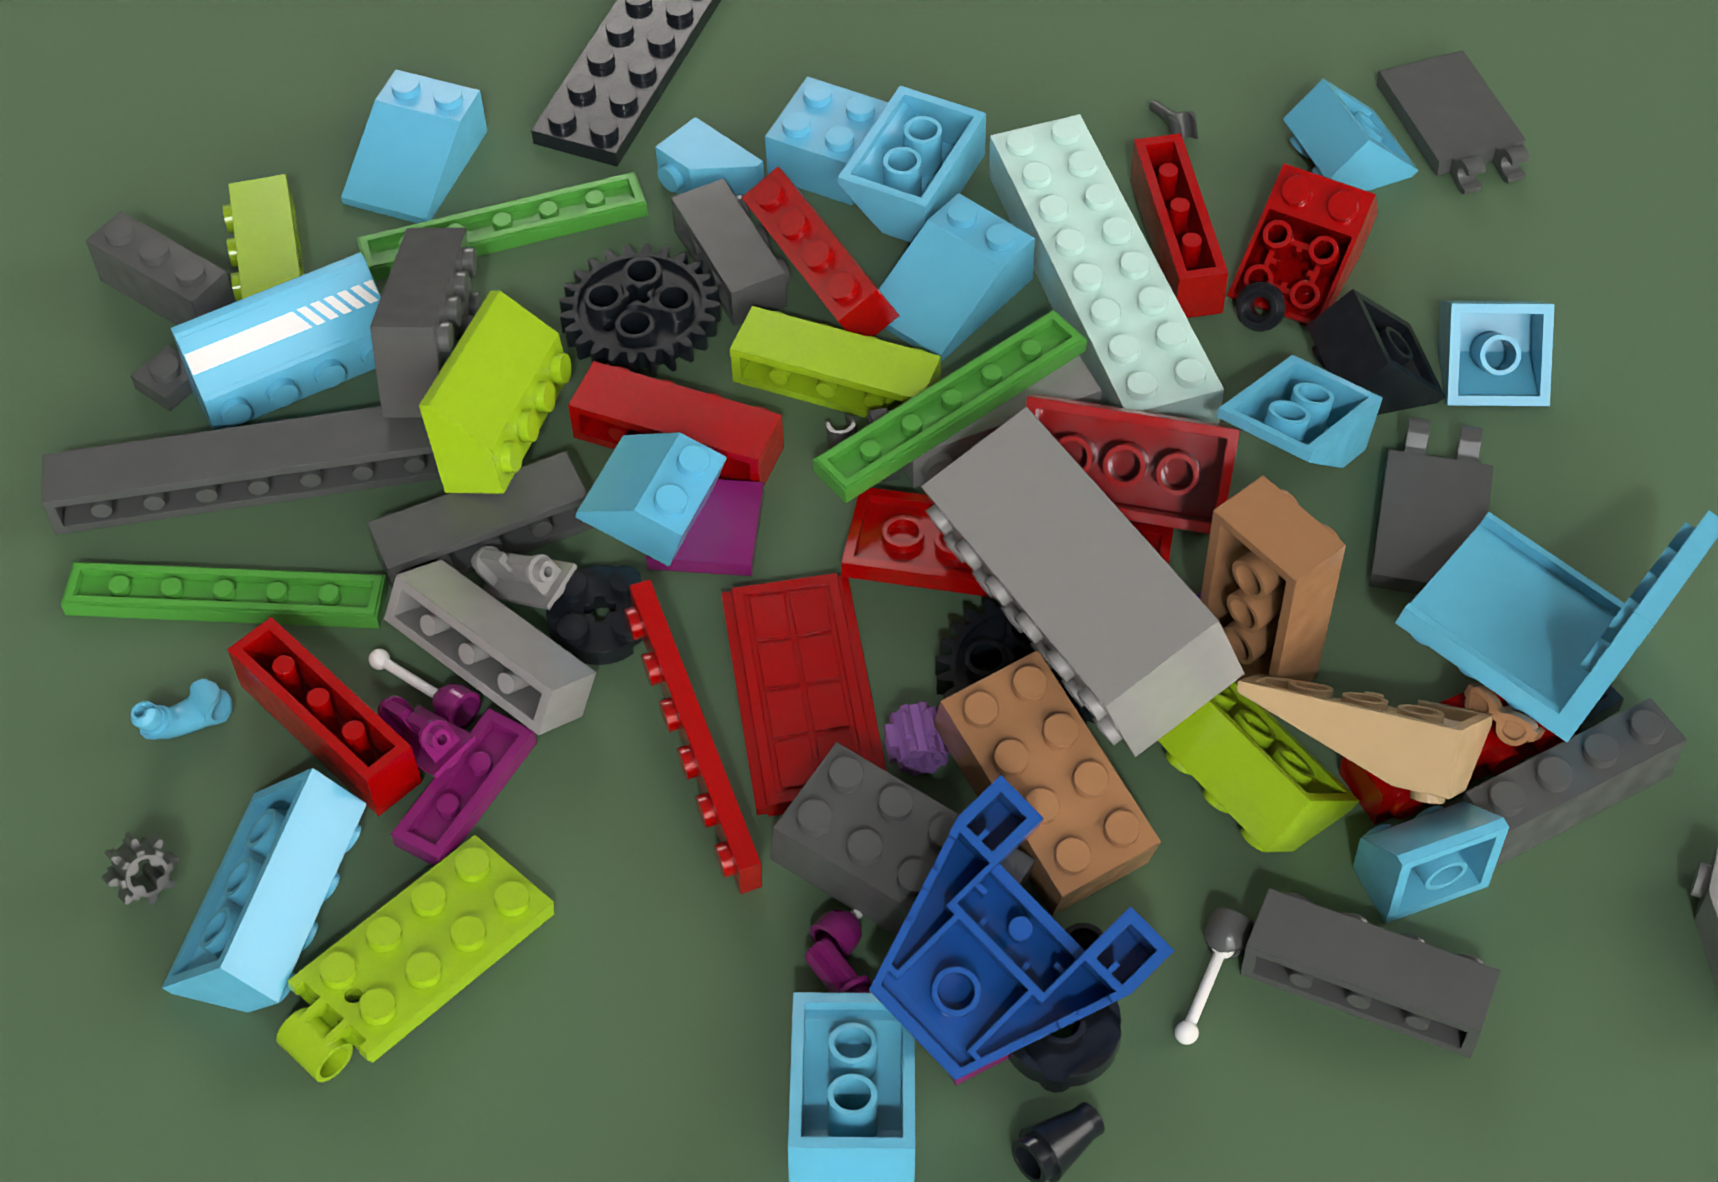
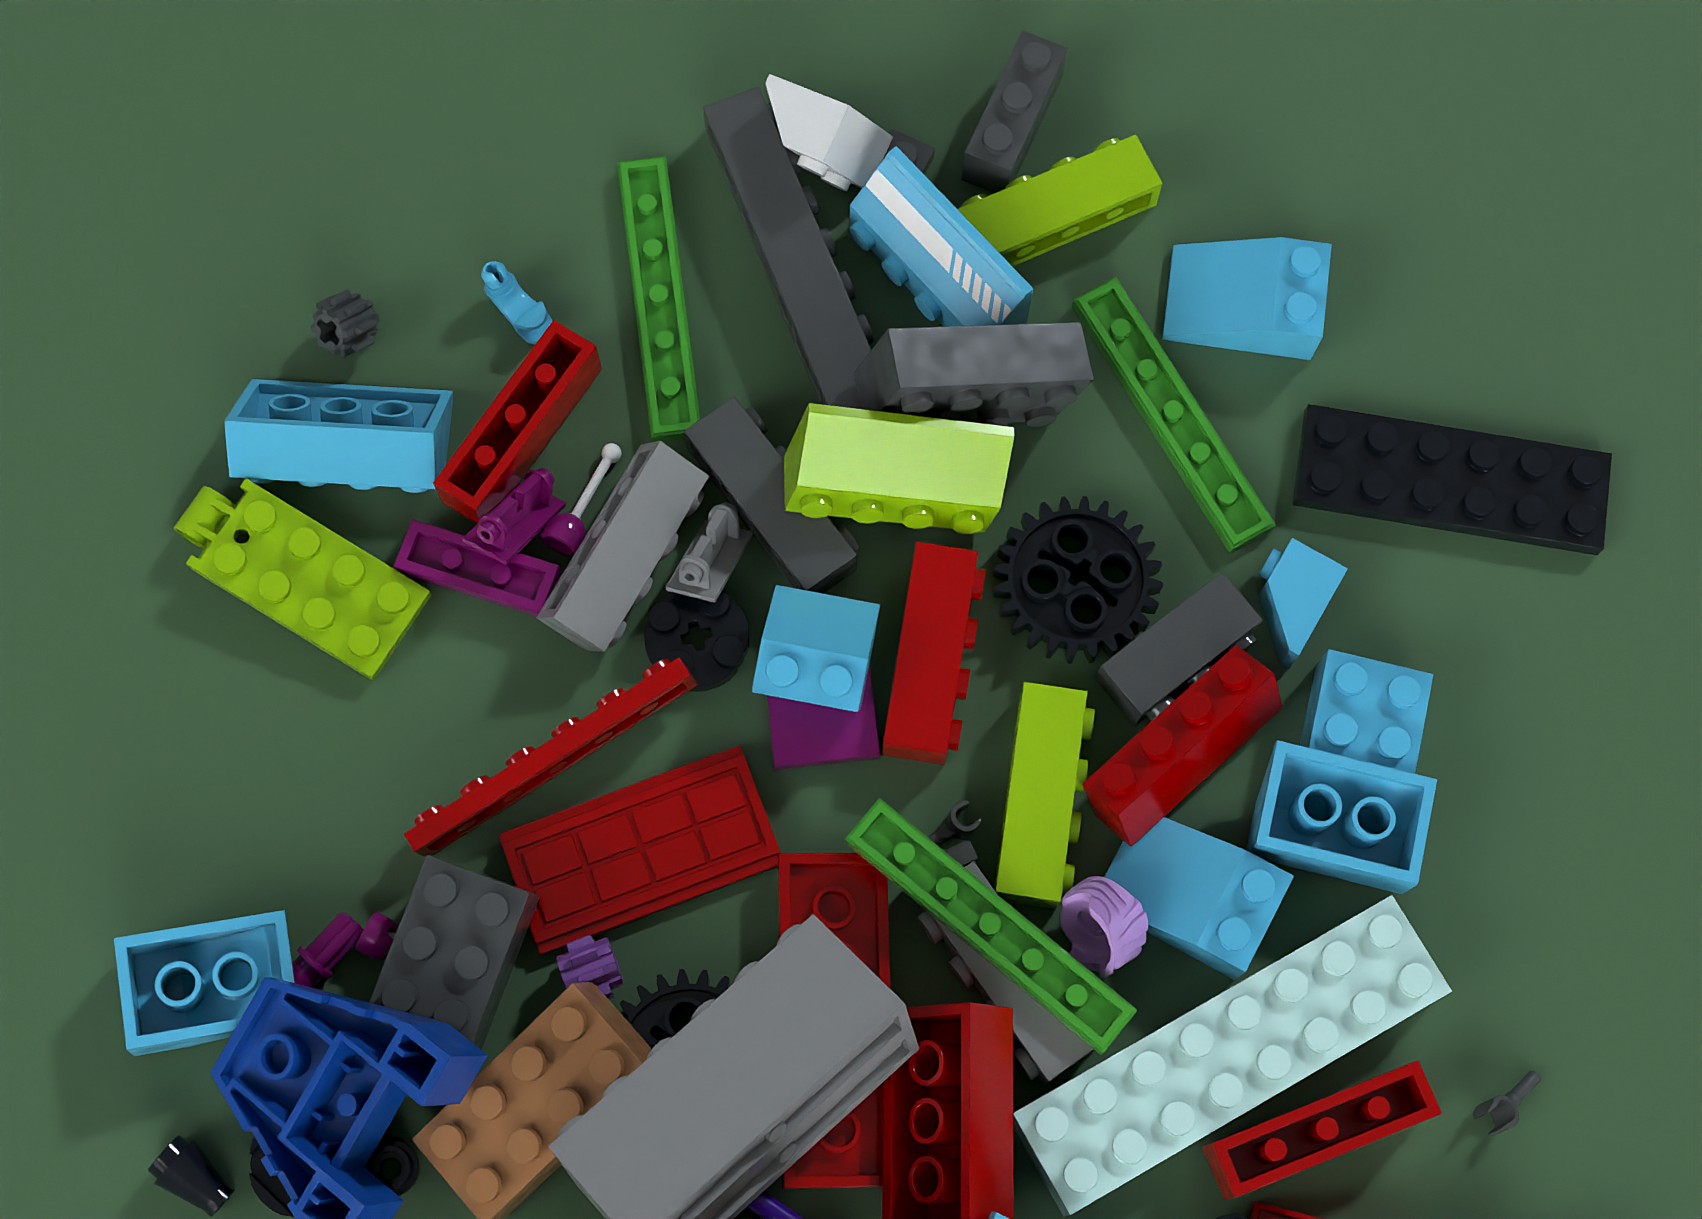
camera: 75 degrees right, 20 degrees up
(117, 403) = (827, 134): none -> white slope
(964, 330) = (1103, 924): none -> lavender hair

